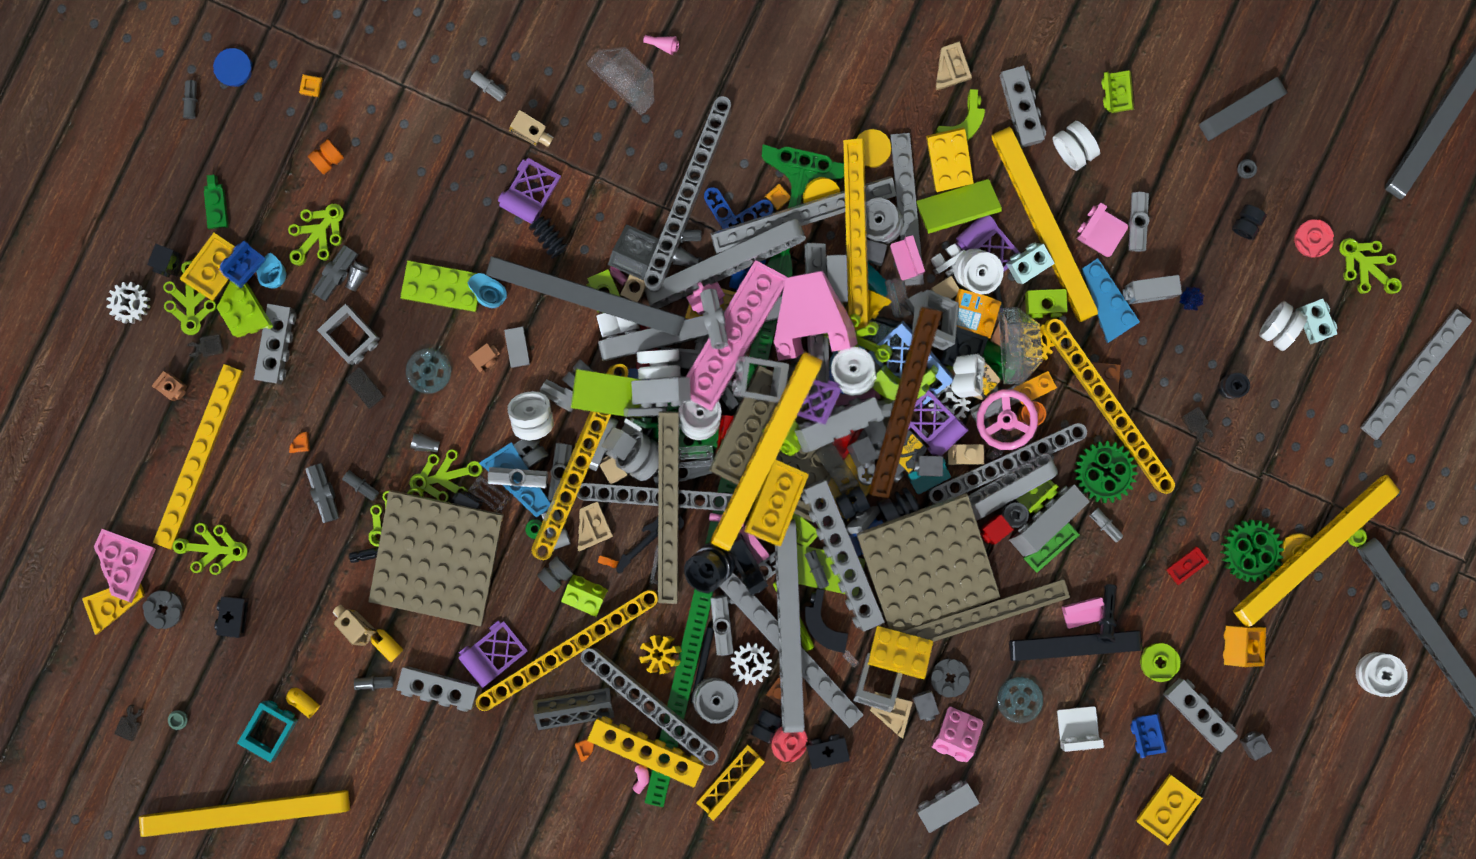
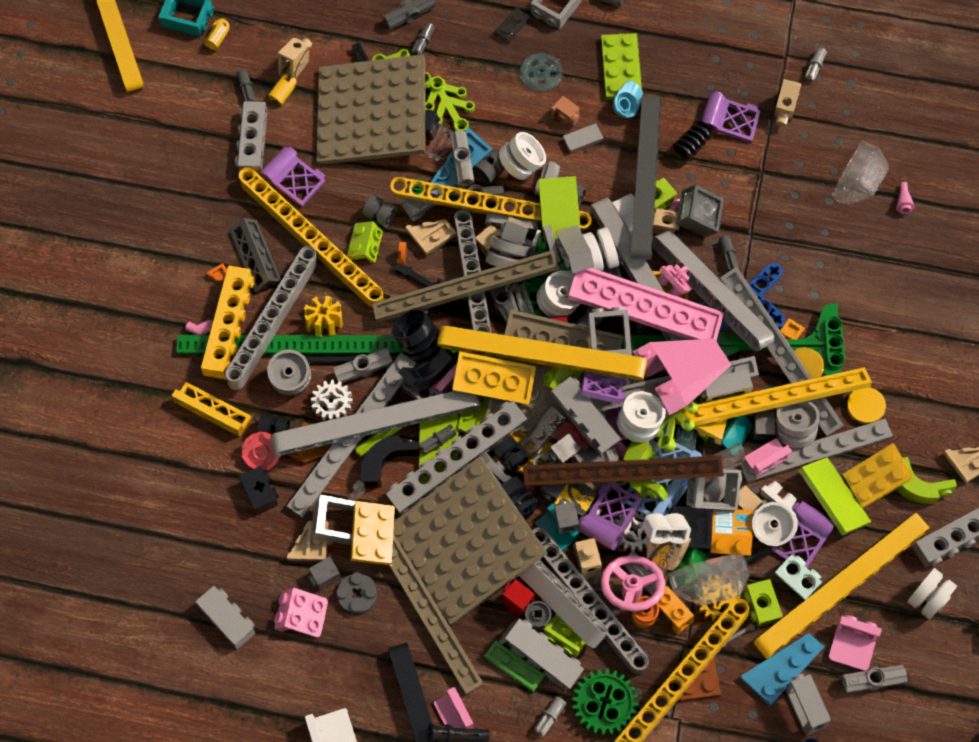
camera: 75 degrees right, 20 degrees down
(424, 443) = (474, 79): flat silver cone -> none
(684, 258) = (708, 255): flat silver cone -> none
(688, 185) = (760, 247): light grey beam -> none
(714, 319) = (656, 281): light grey piece -> none
(1028, 714) = (355, 684): clear light blue plate -> none

